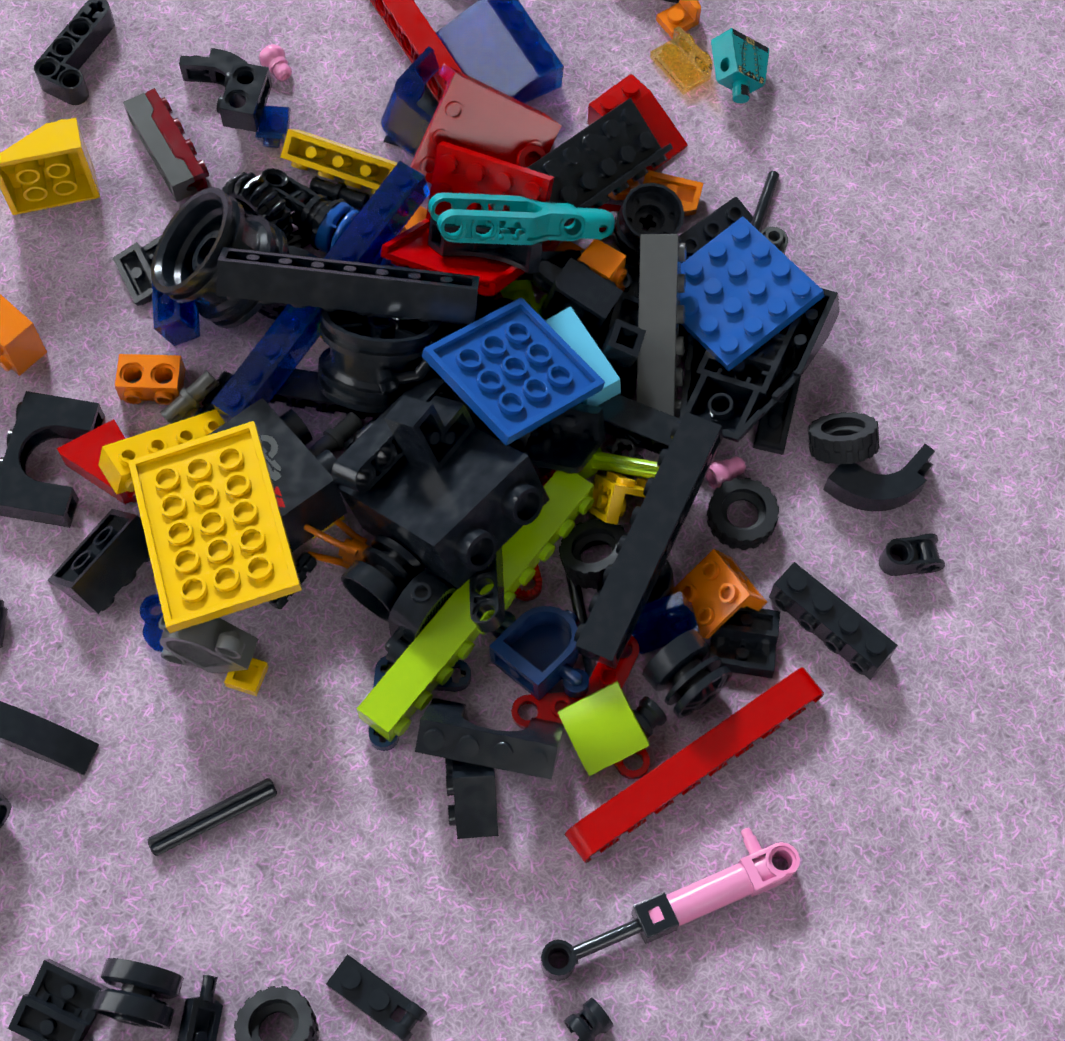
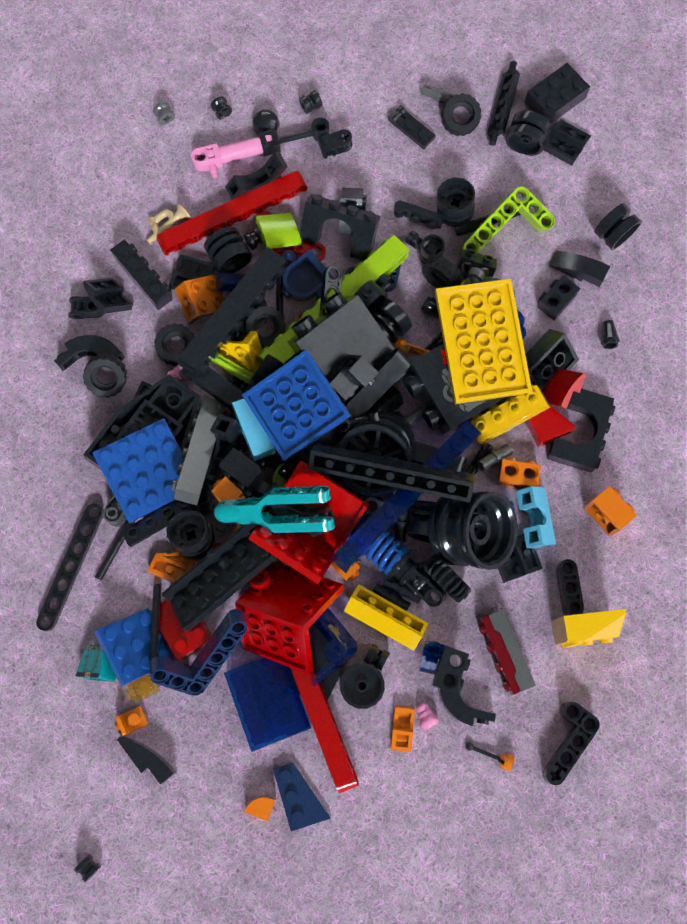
camera: 170 degrees left, 10 degrees up
(68, 219) = (572, 579): none -> black beam
(73, 672) = (560, 299): none -> black brick
(76, 506) = (561, 386): none -> red slope
(115, 297) = (535, 503): none -> medium azure arch
(164, 27) = (505, 760): none -> hinge
(187, 810) = (502, 217): none -> lime beam
(234, 703) = (477, 260): none -> black brick
(281, 806) = (456, 201): none -> black wheel
(293, 677) = (441, 272): none -> black tyre
(305, 632) = (430, 307): none -> black cone
(308, 49) = (403, 728): none -> orange slope
(315, 730) = (431, 245): none -> black wheel
(347, 803) = (418, 214): none -> black plate
(351, 754) = (414, 239): none -> black bush
(352, 119) = (376, 656): none -> black wheel
(367, 77) = (374, 685): none -> black wheel
(530, 933) = (334, 143): none -> black piece
(598, 66) = (196, 678): none -> dark blue beam
(665, 826) = (269, 172): none -> black arch
(670, 968) = (265, 120): none -> black hair
(674, 120) = (155, 621): none -> black bar
(697, 84) = (128, 646): none -> blue plate
(766, 983) = (221, 108): none -> black wheel
(790, 746) = (181, 214): none -> tan piece
(818, 195) = (62, 573): none -> black beam
(877, 955) = (163, 112): none -> dark grey wheel
(879, 571) = (107, 295): none -> black slope

